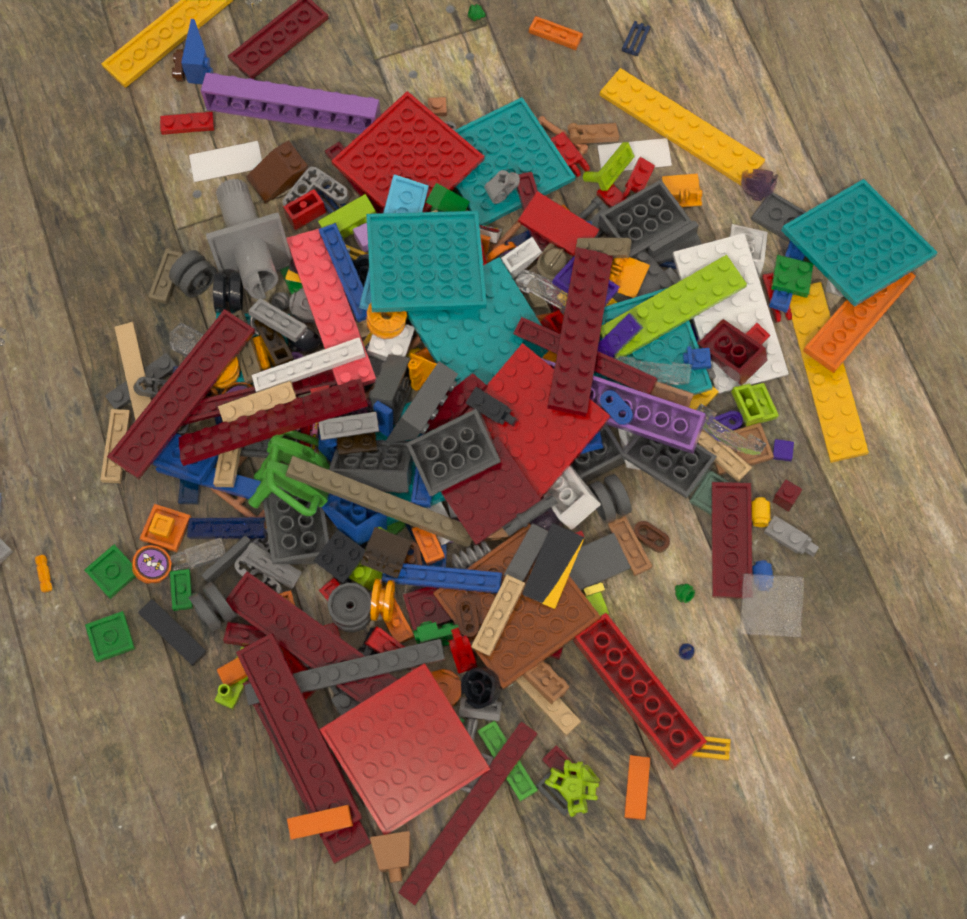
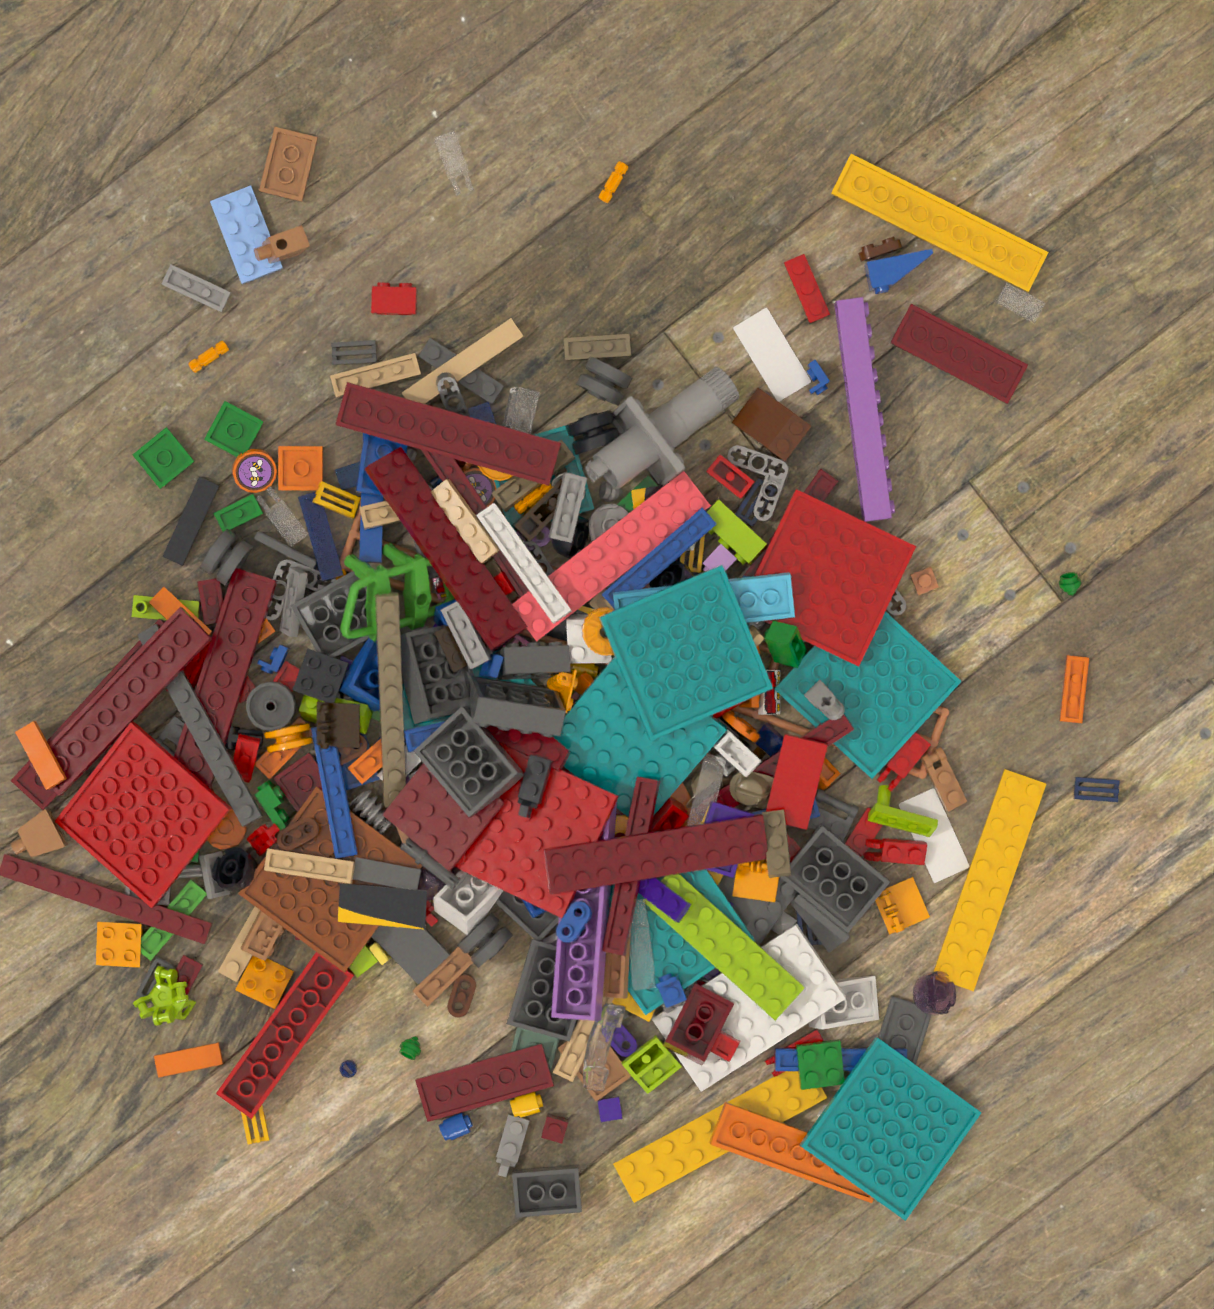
camera: 70 degrees right, 20 degrees up
(47, 229) = (613, 182): none -> light orange axle
(63, 412) = (394, 300): none -> red brick
(79, 471) = (335, 353): none -> dark grey tile
(161, 525) = (297, 467): light orange plate -> none
(204, 507) = (319, 493): none -> yellow tile
(254, 130) = (816, 373): none -> blue bracket
(312, 595) = (278, 656): none -> blue bracket
(513, 813) = (118, 944): none -> light orange hinge
(587, 697) = (264, 981): none -> light orange hinge
(771, 605) = (423, 1145): clear plate -> none
(840, 516) = (547, 1191): none -> dark grey brick

